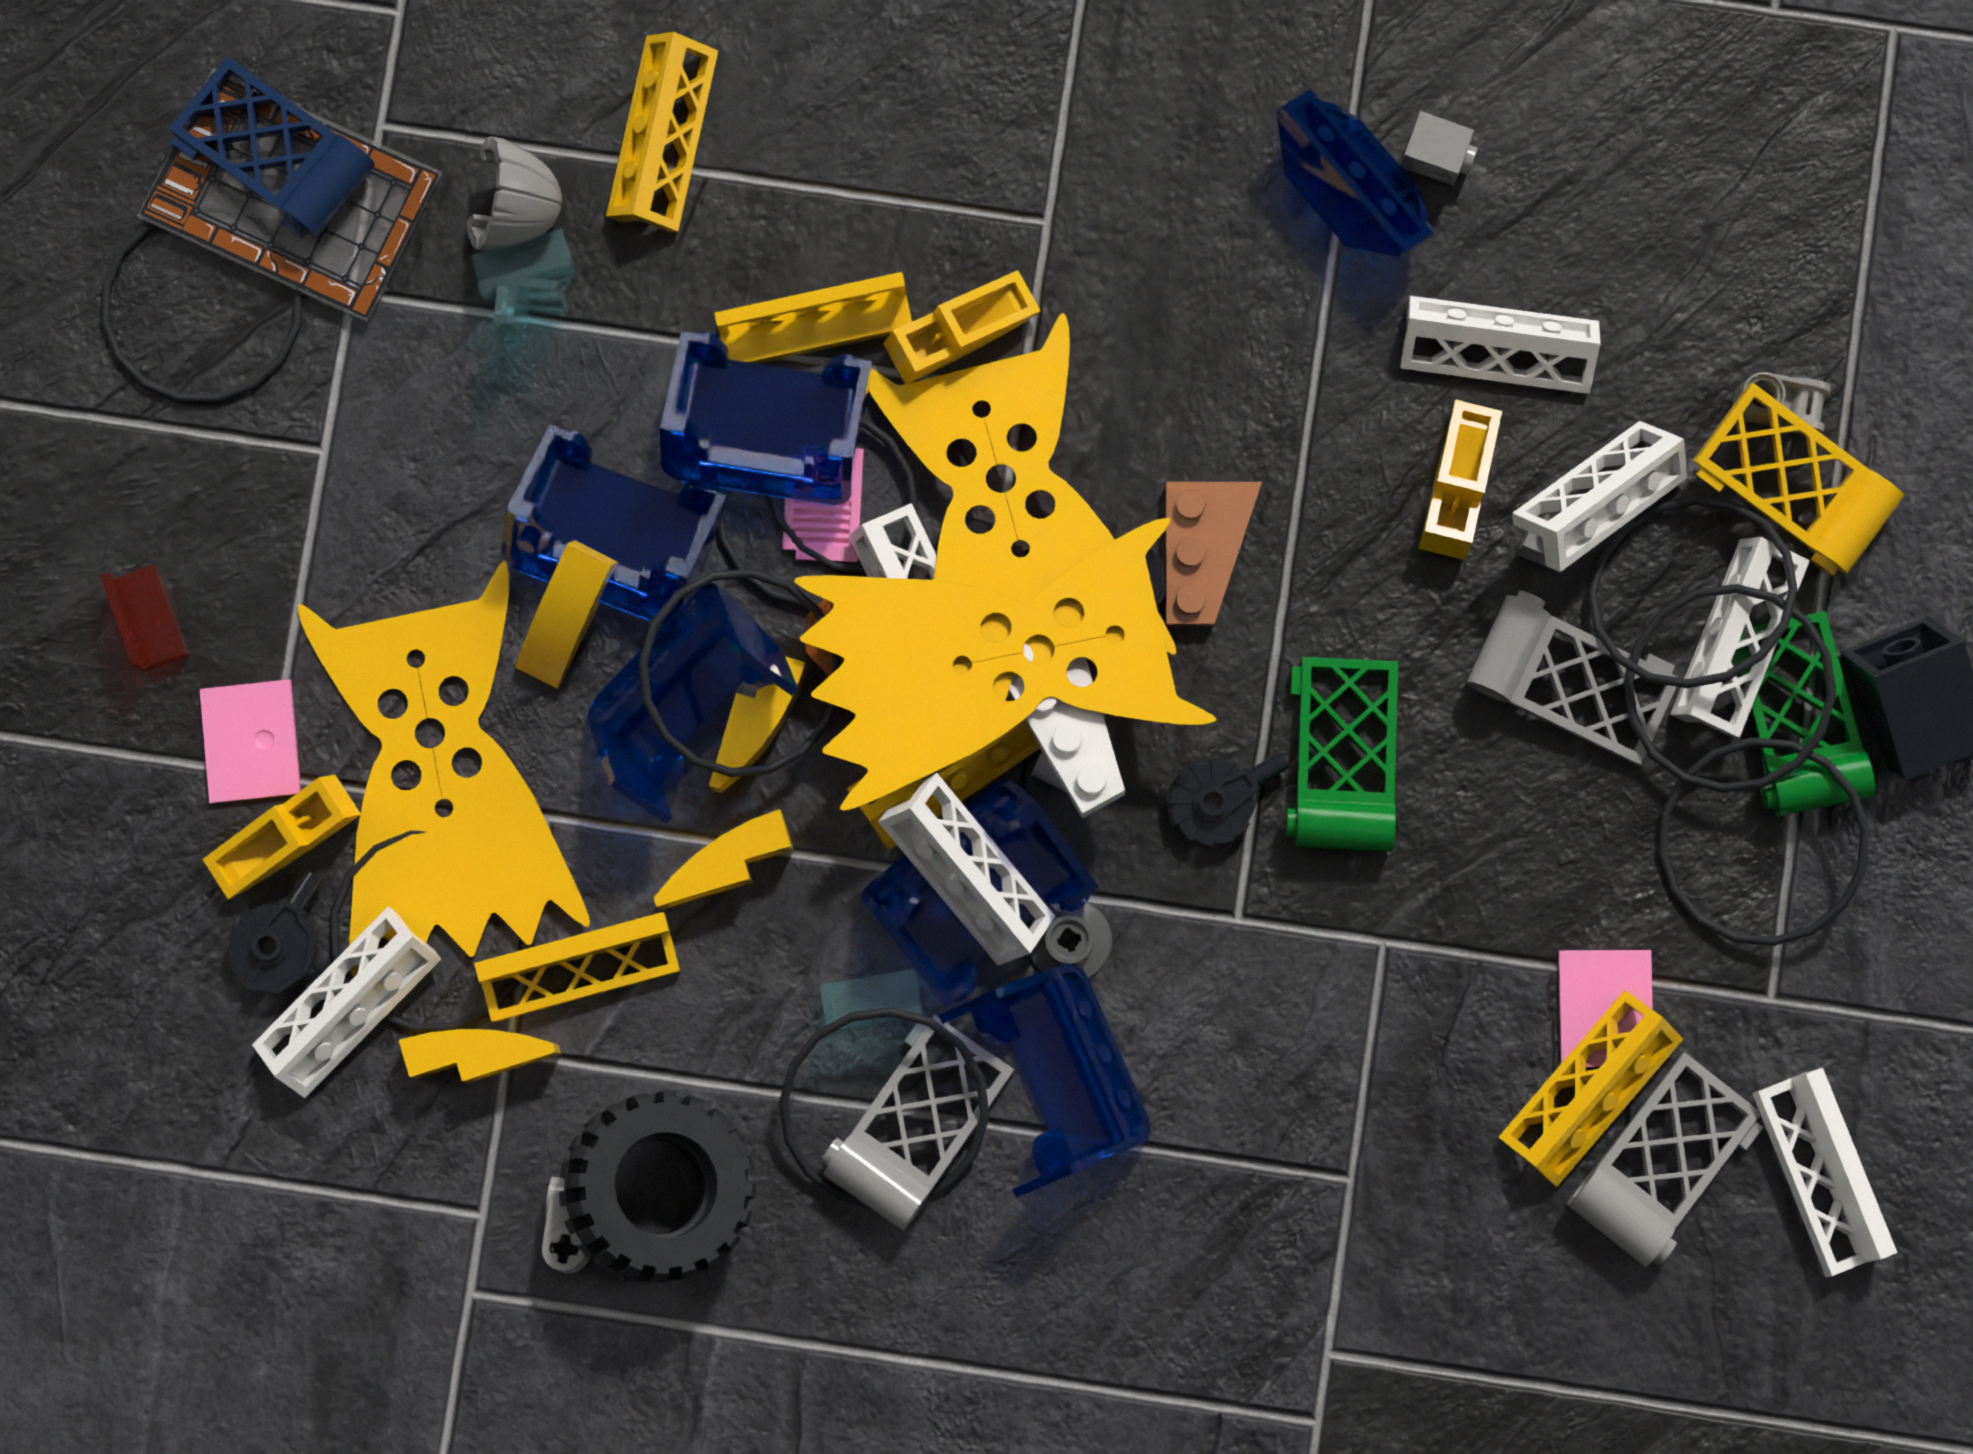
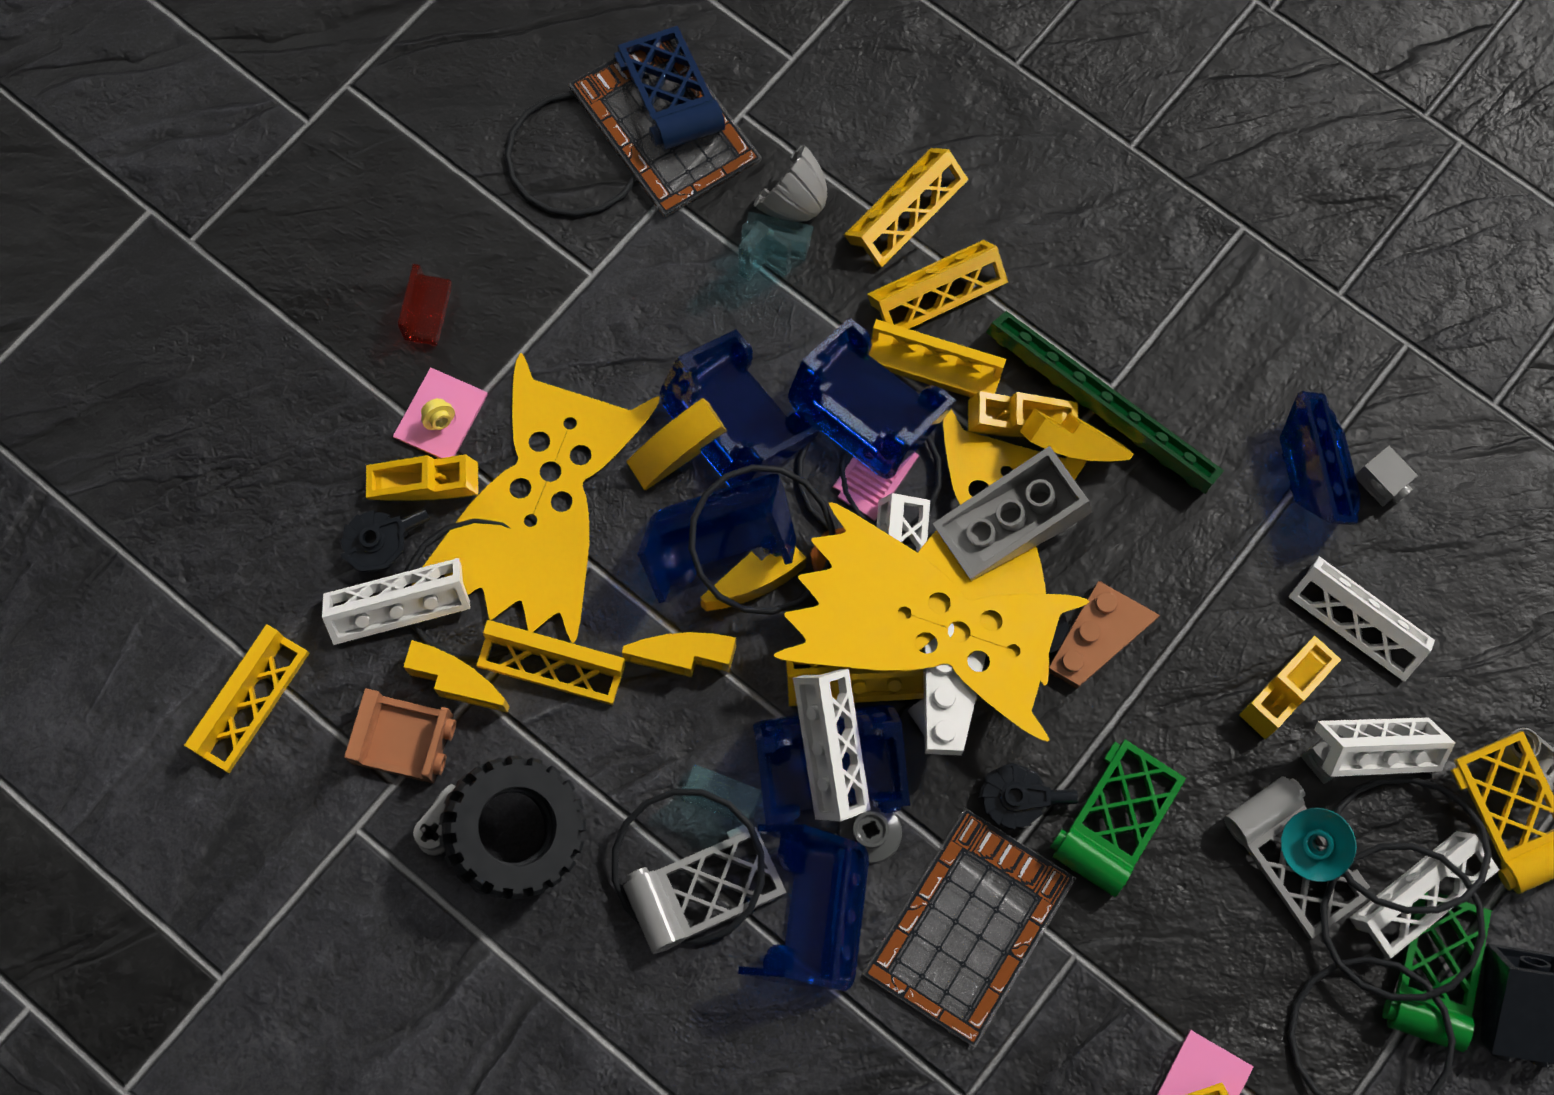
camera: 25 degrees right, 10 degrees down
(227, 1222) = (236, 691): none -> yellow fence
(249, 746) = (437, 414): none -> light yellow plate
(456, 1158) = (400, 737): none -> nougat panel
(750, 209) = (936, 275): none -> yellow fence
(1021, 466) = (1013, 514): none -> light grey slope
(1039, 324) = (1073, 438): none -> yellow slope
(1048, 250) = (1105, 402): none -> dark green plate
(1245, 982) = (969, 927): none -> piece
(1585, 675) = (1302, 852): none -> teal dish

